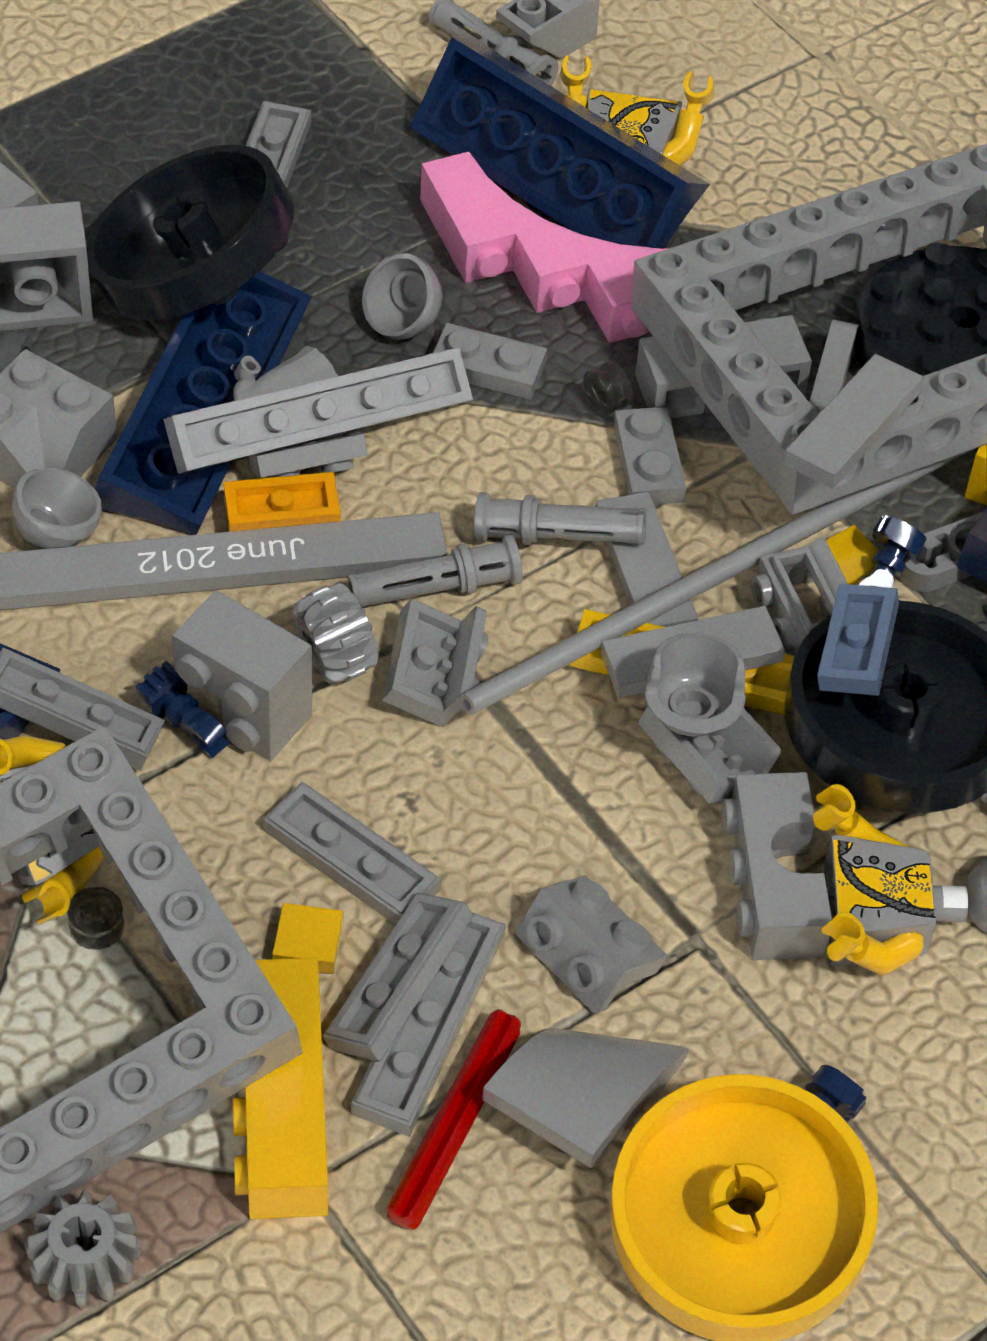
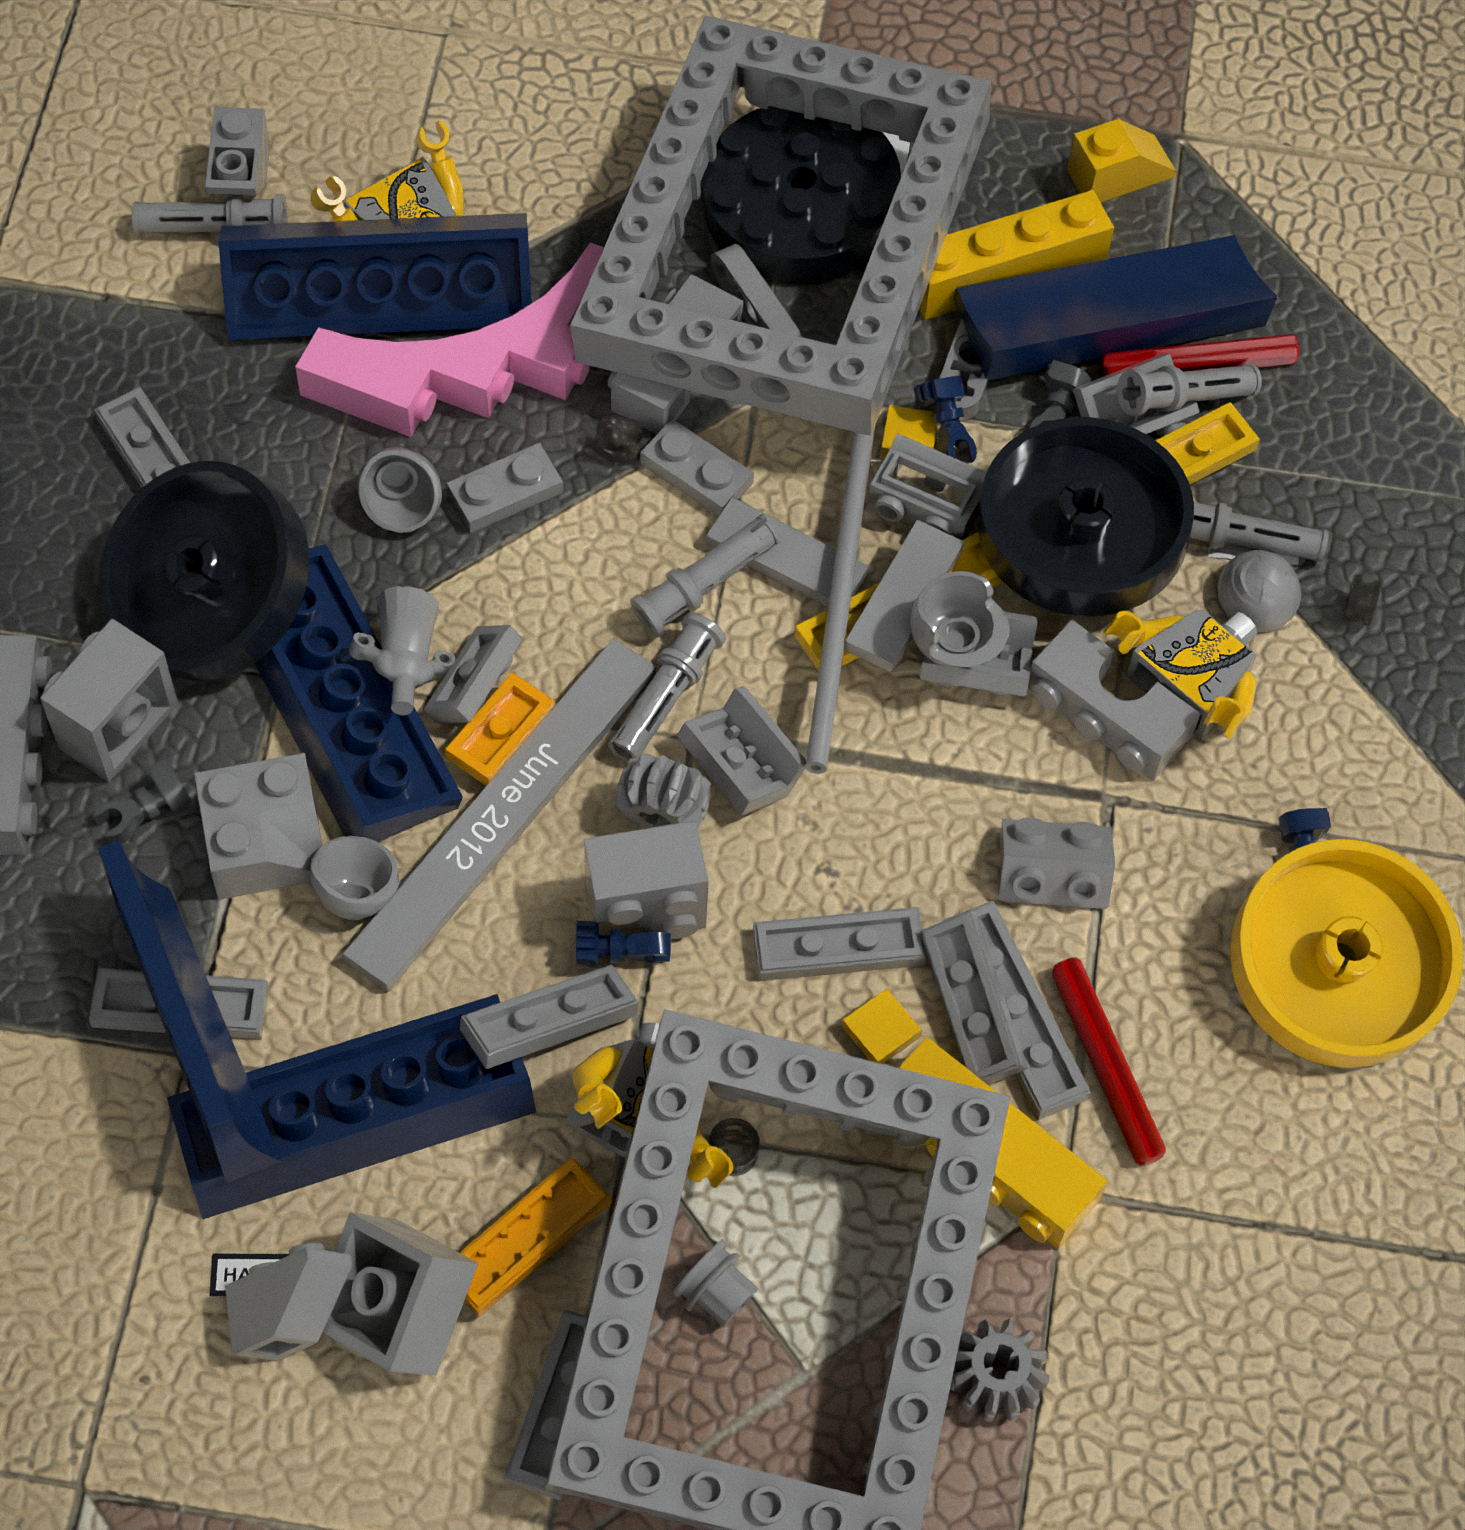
camera: 45 degrees left, 10 degrees up
(317, 410) = (458, 636): light grey plate -> none
(581, 1086) = (1166, 964): light grey slope -> none
(853, 421) = (879, 333): light grey tile -> none
(858, 639) = (1030, 495): sand blue plate -> none

